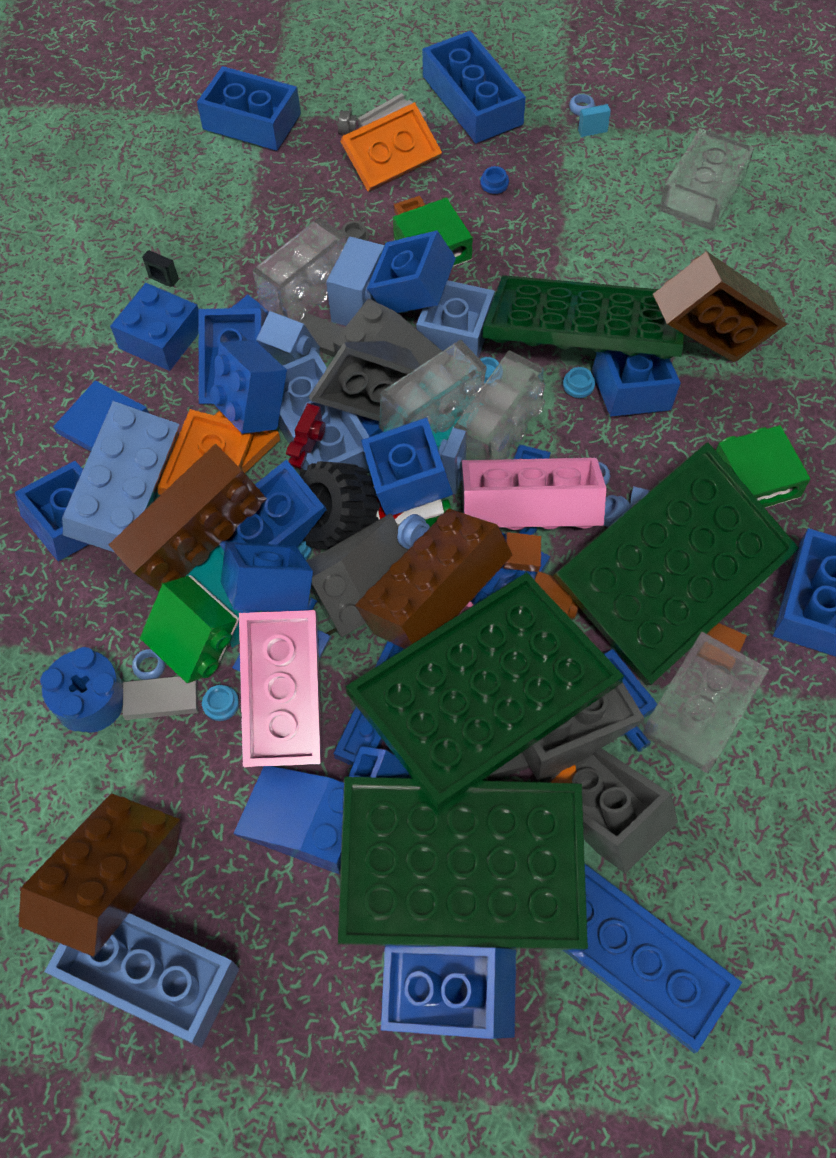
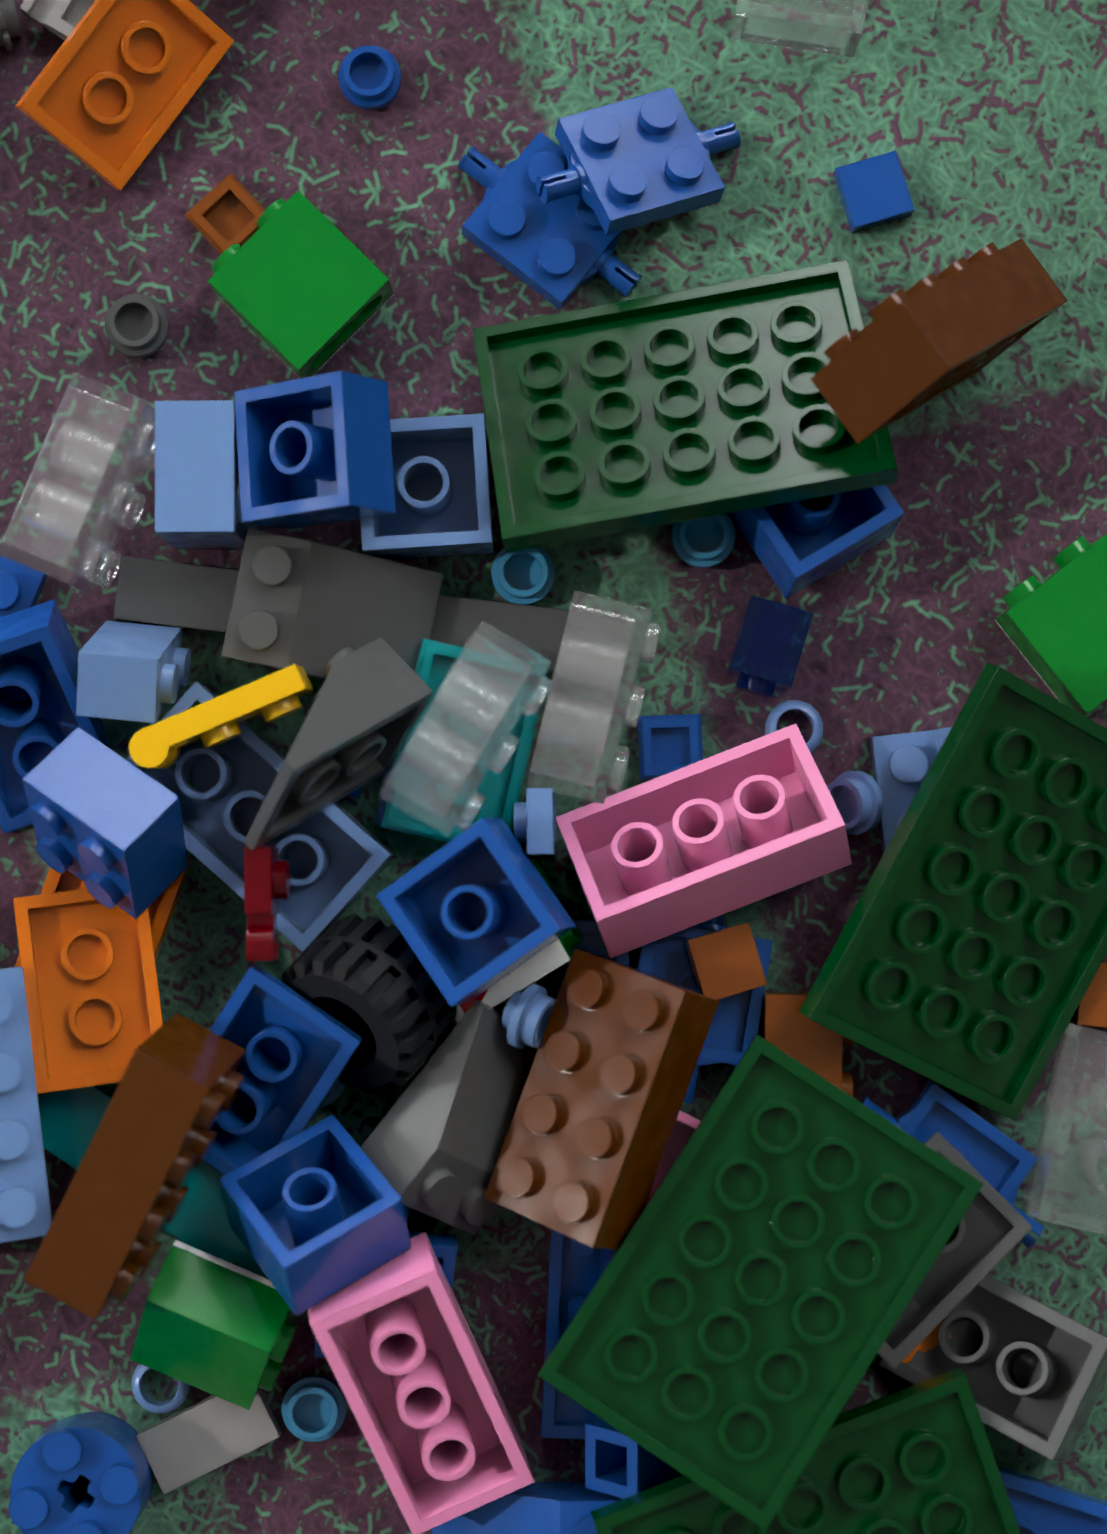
camera: 20 degrees left, 25 degrees up
(308, 356) = (219, 718): none -> yellow plate
(553, 249) = (542, 244): none -> blue plate
(594, 430) = (768, 646): none -> clear blue brick
(601, 233) = (638, 161): none -> blue plate

